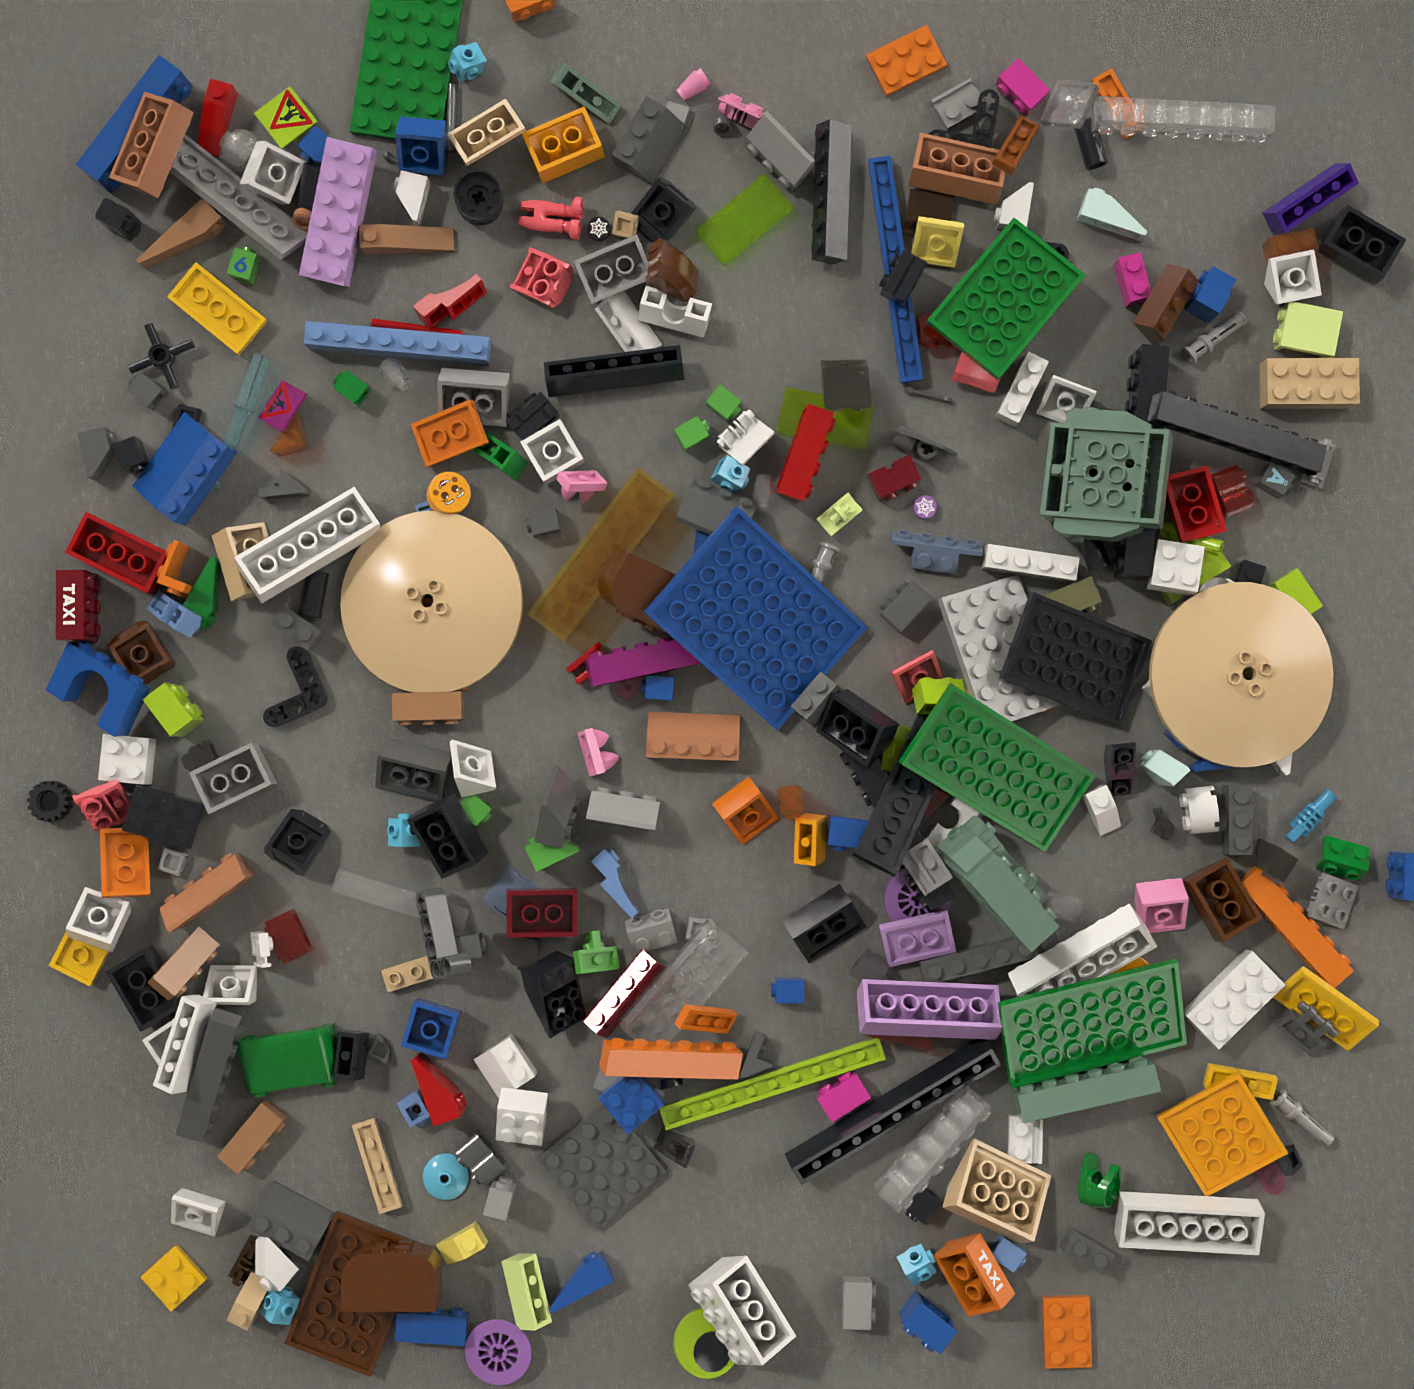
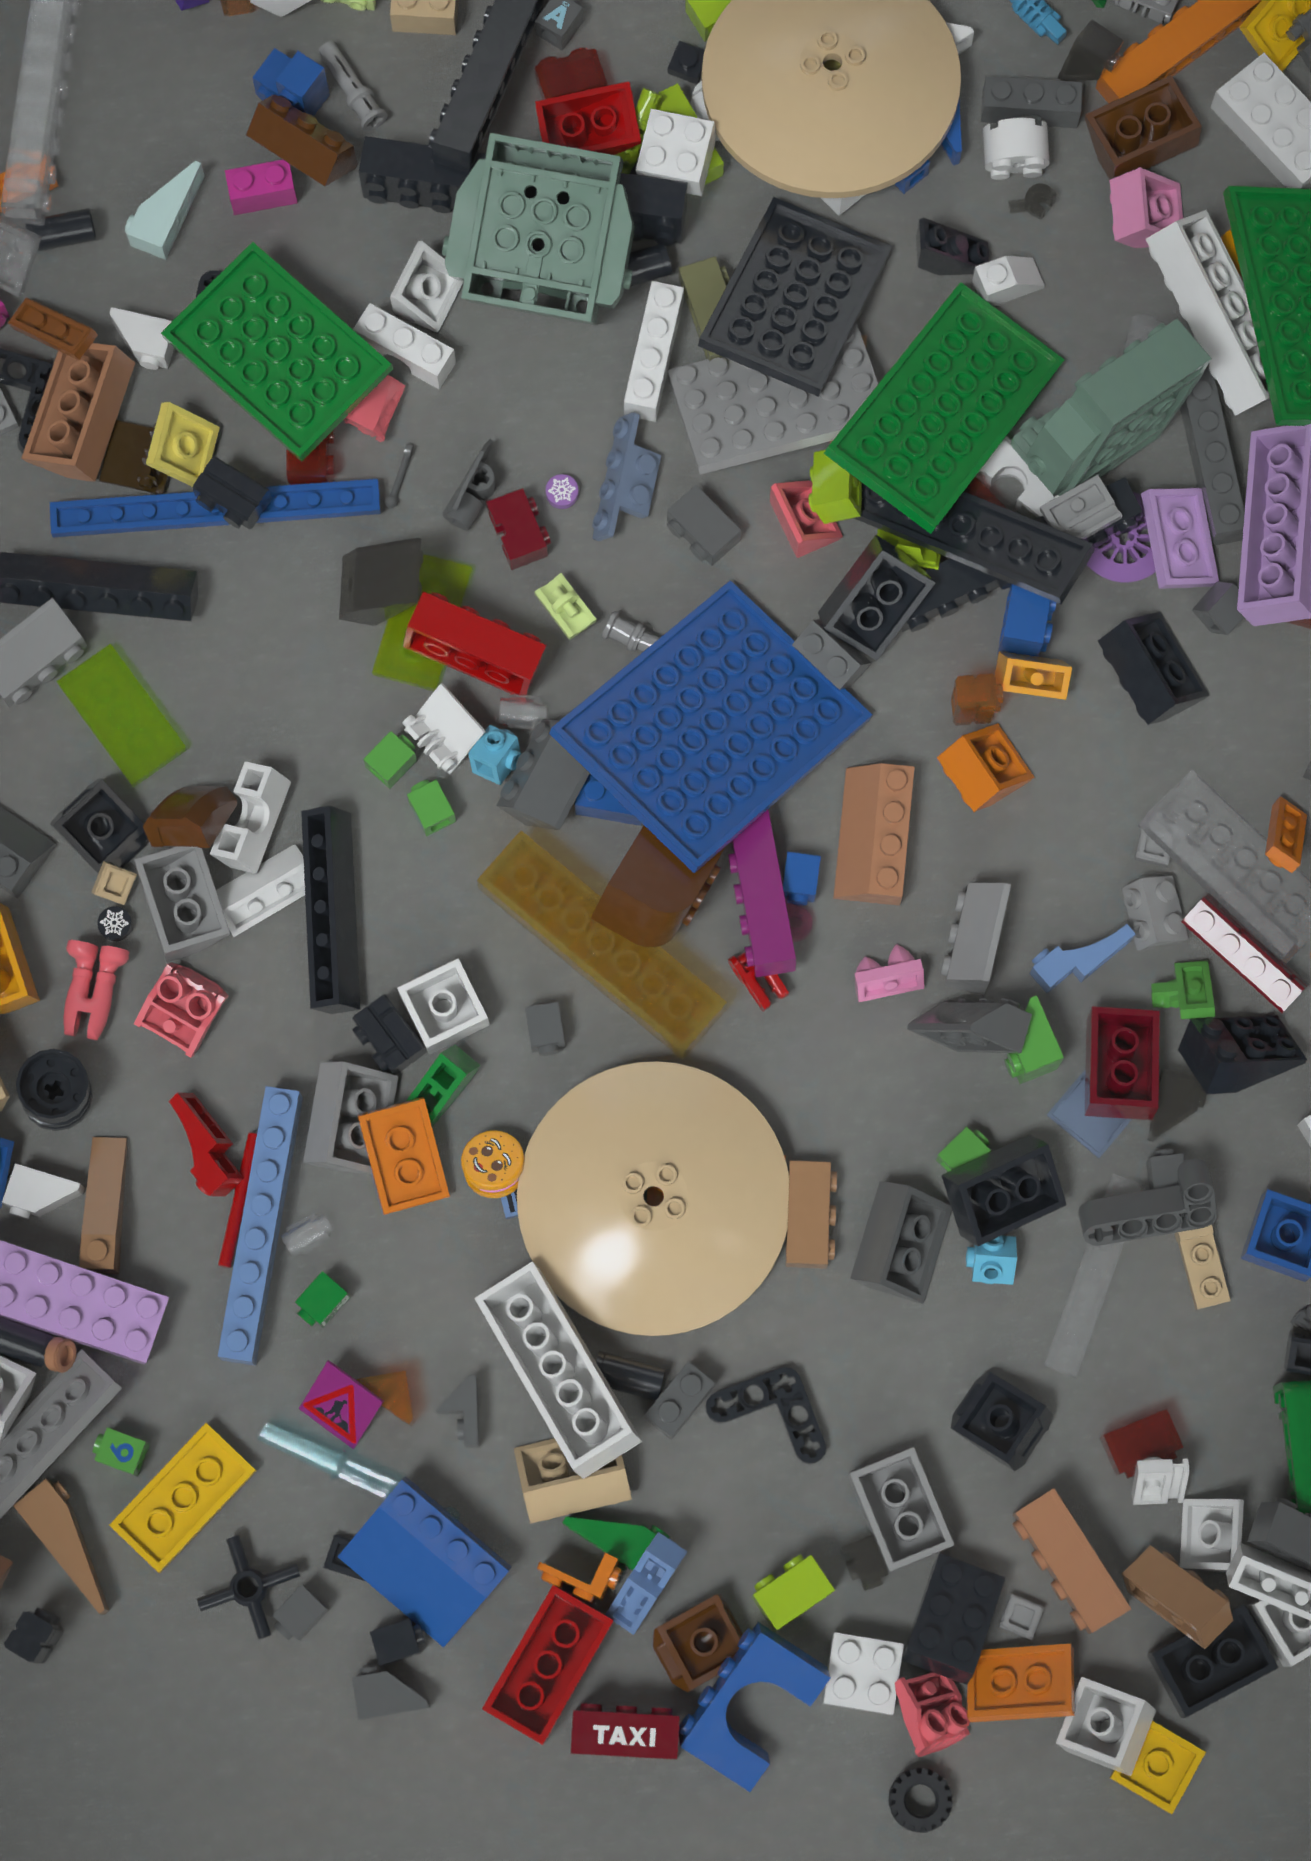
camera: 85 degrees left, 10 degrees down
(472, 769) = (906, 1151): white slope -> none
(580, 481) = (493, 968): bright pink tile -> none
(788, 990) = (1247, 723): blue brick -> none
(1163, 768) = (956, 189): light aqua slope -> none

